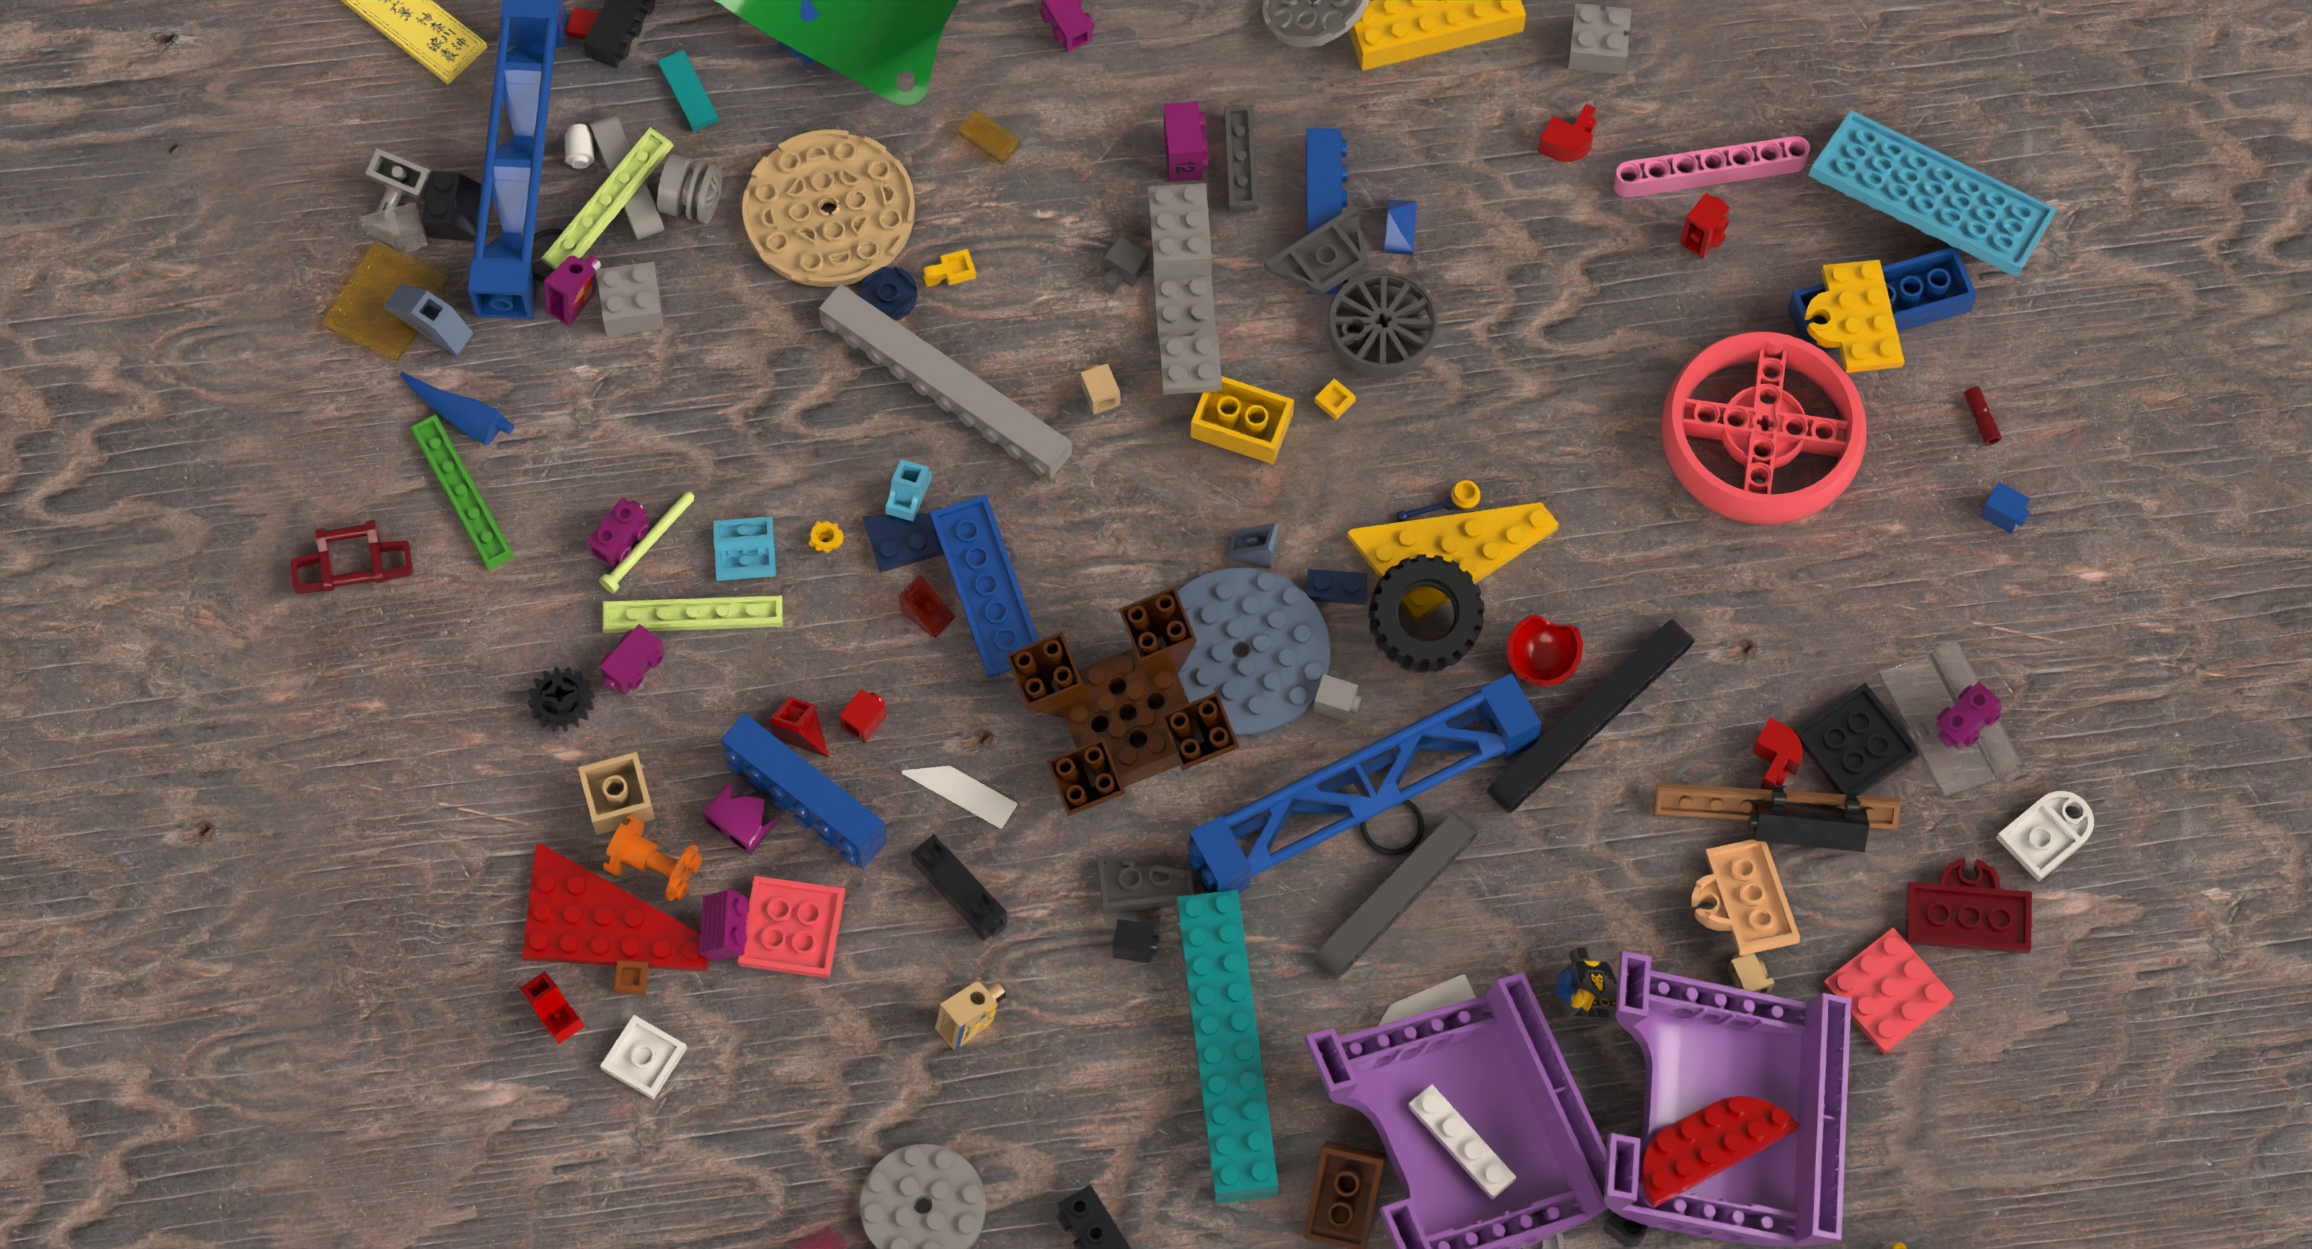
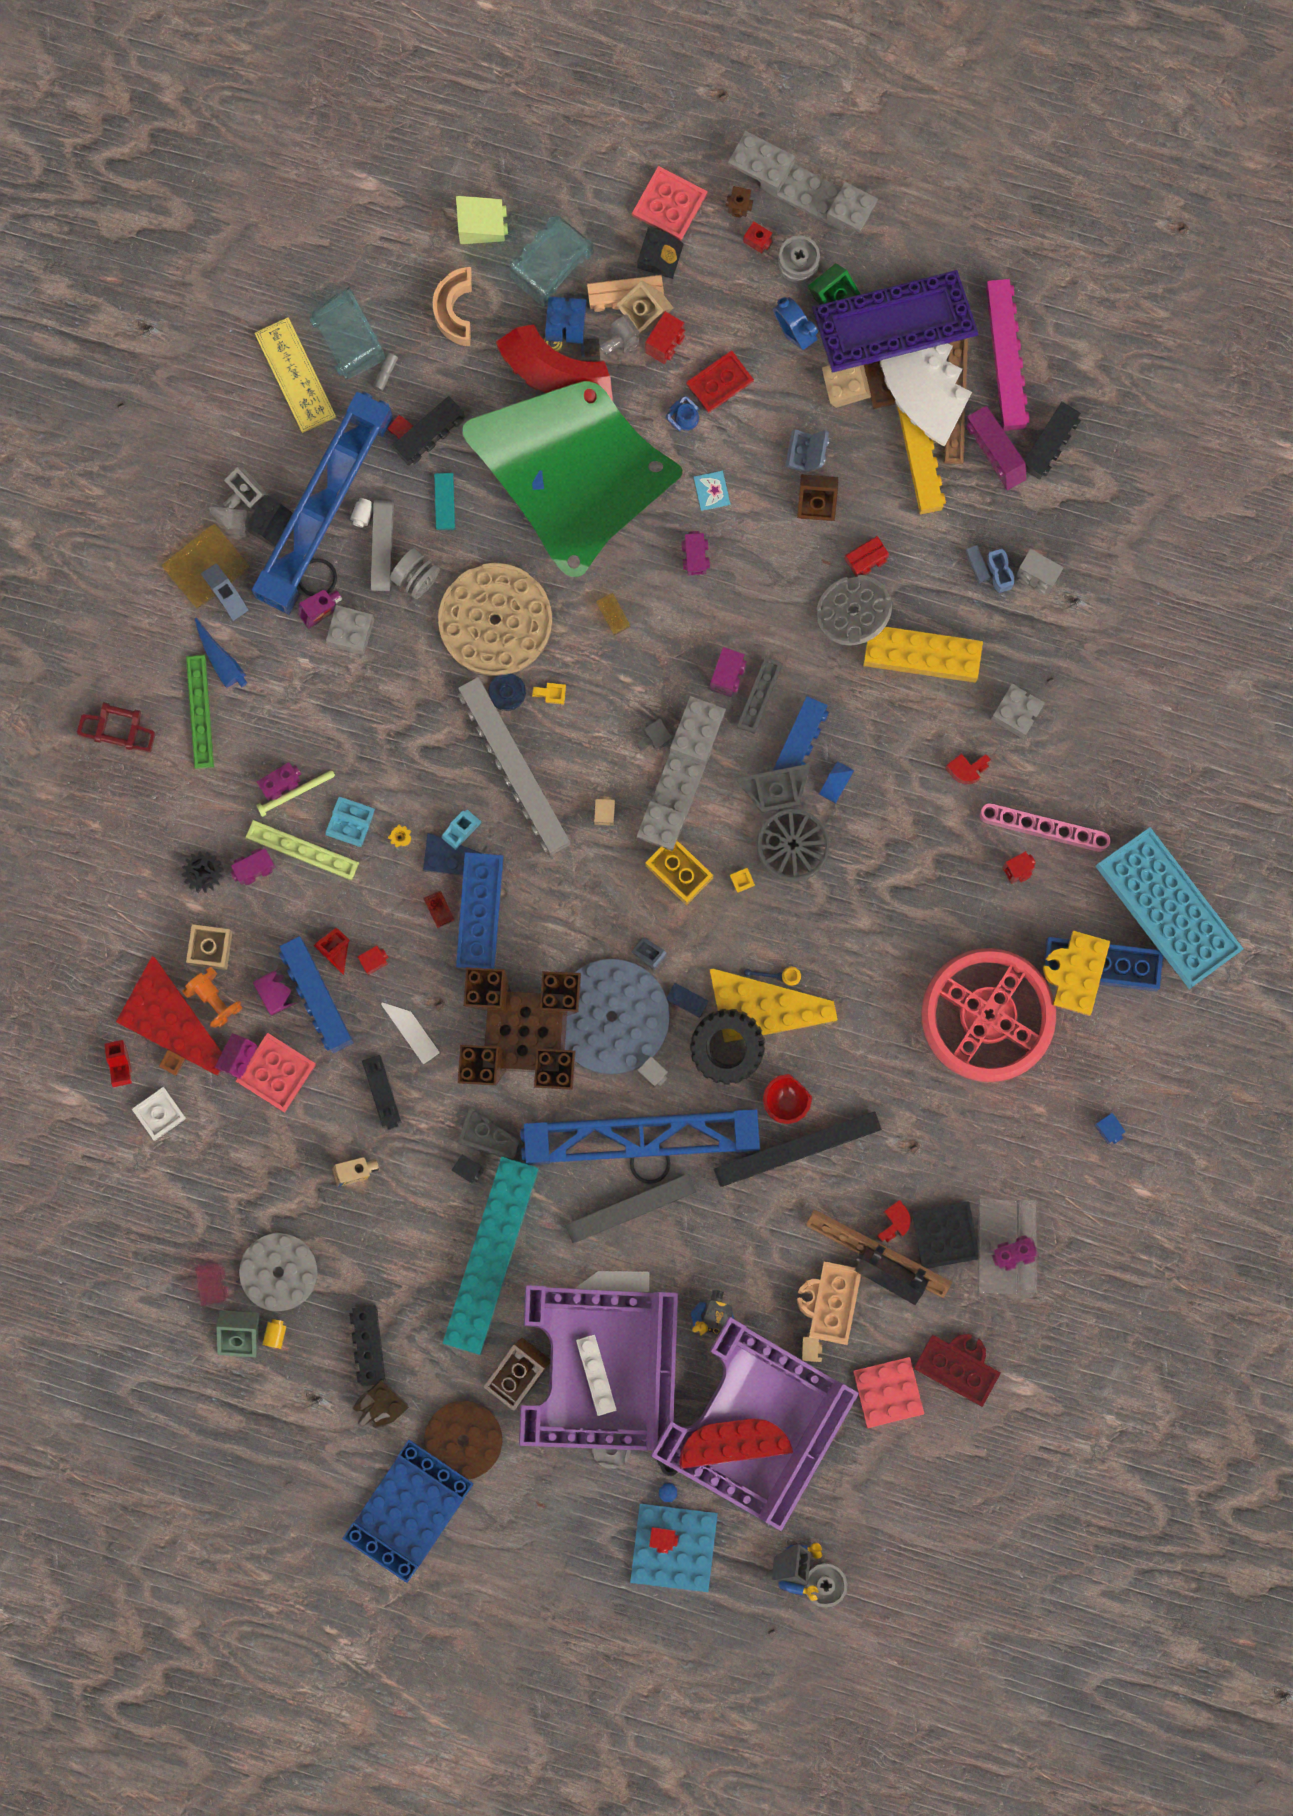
camera: 25 degrees right, 15 degrees up
(609, 199) = (362, 560): yellowish green tile -> none
(1981, 413) = (1128, 1059): dark red piece -> none
(2046, 834) = (1029, 1341): white plate -> none

